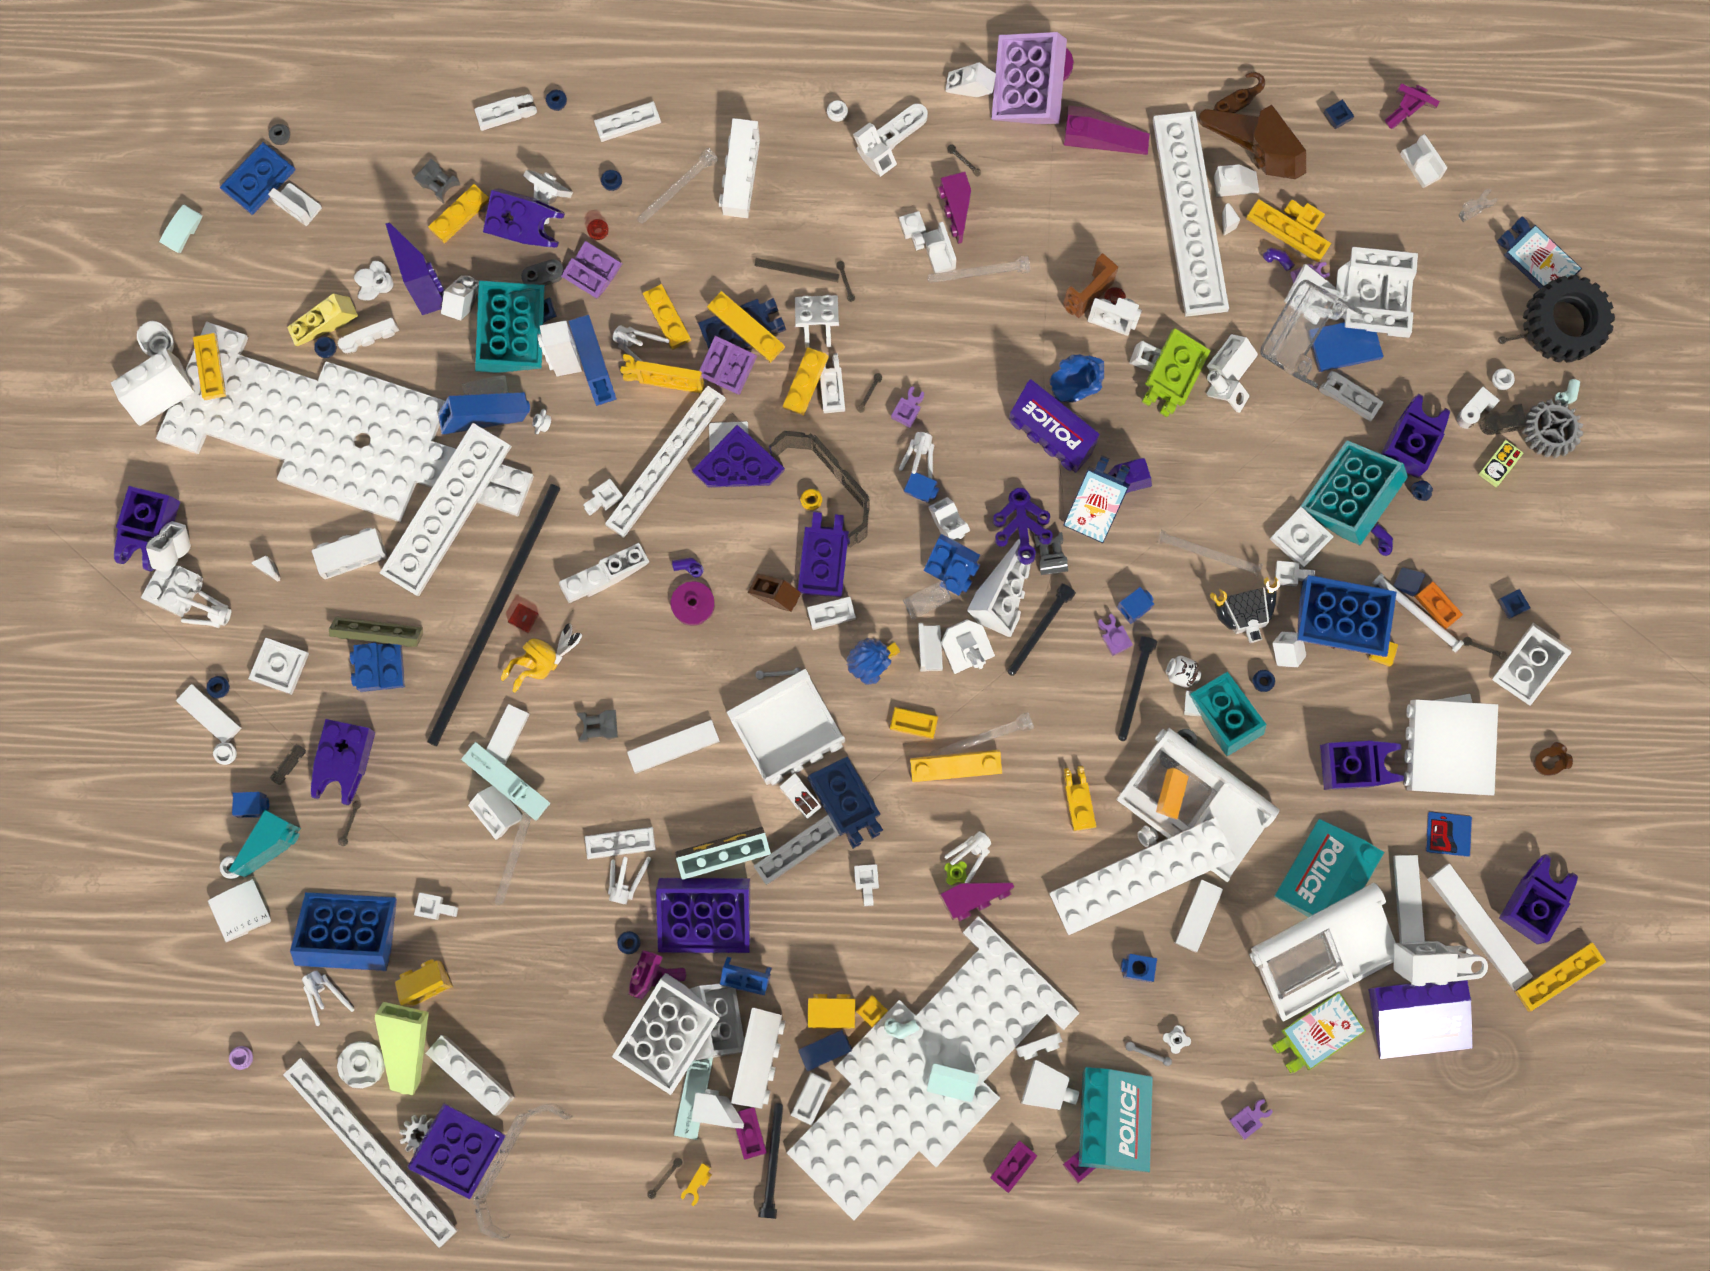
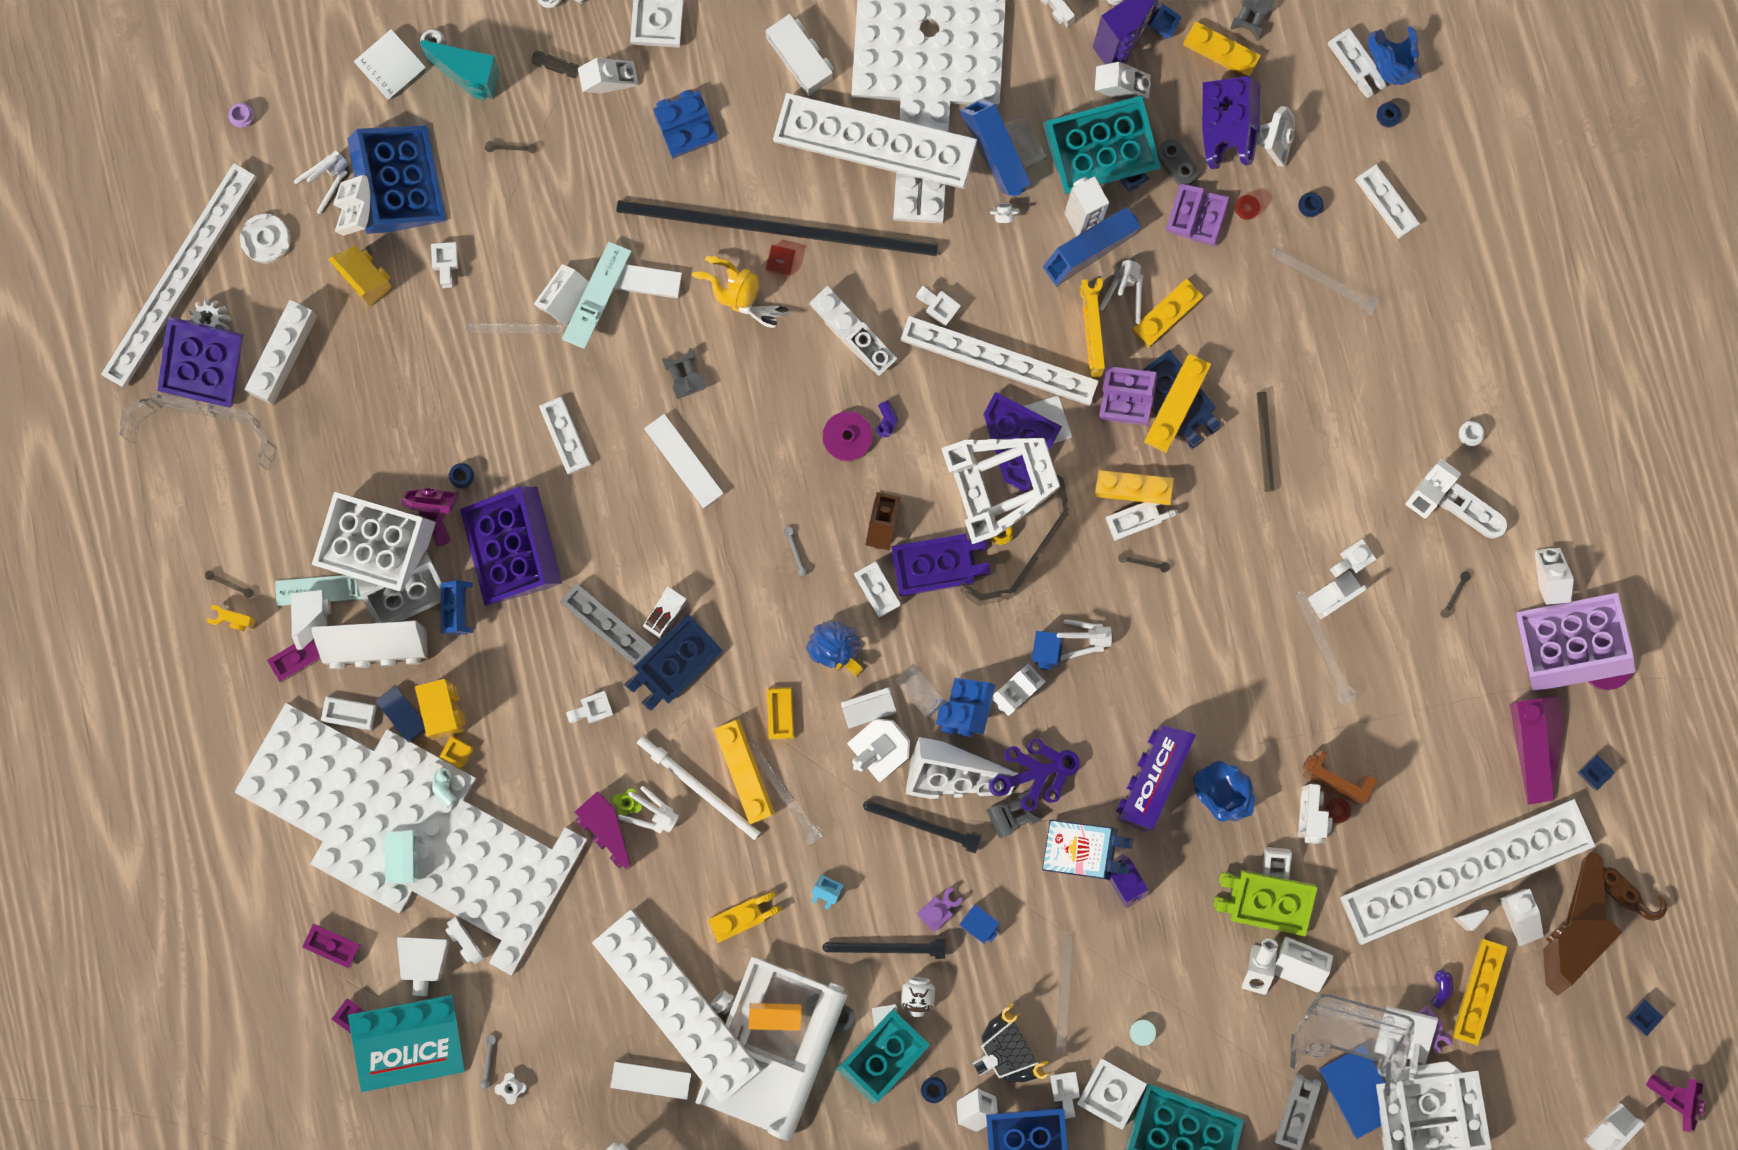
camera: 70 degrees right, 5 degrees up
(249, 804) = (501, 39): blue brick -> none
(312, 720) = (607, 75): none -> white slope
(341, 765) = (567, 120): dark purple brick -> none
(357, 972) = (354, 201): none -> white slope
(376, 632) = (721, 109): olive plate -> none
(402, 1044) = (291, 273): yellowish green slope -> none
(424, 247) = (1164, 21): none -> blue plate
(512, 80) = (1395, 60): none -> blue hair
(619, 892) = (512, 449): white plant -> none
(722, 853) = (580, 546): light aqua brick -> none
(740, 168) = (1364, 344): white wedge -> none
(767, 1208) = (223, 699): black piece -> none
(770, 511) = (975, 497): none -> white windscreen
(786, 728) = (736, 577): white panel -> none
(816, 311) = (1219, 476): white plate -> none
(840, 266) = (1285, 489): clear smoke hinge -> none
(907, 410) = (1133, 609): medium lavender plate -> none
(922, 834) = (659, 755): none -> white bar
(956, 194) = (1402, 600): magenta slope -> none
(1075, 722) = (827, 890): none -> medium azure tile
(1136, 95) = (1595, 772): none -> dark blue plate
(1149, 968) = (570, 1038): blue brick -> none
(1257, 500) = (1142, 1032): none -> light aqua tile
(1306, 216) = (1503, 1010): yellow plate -> none

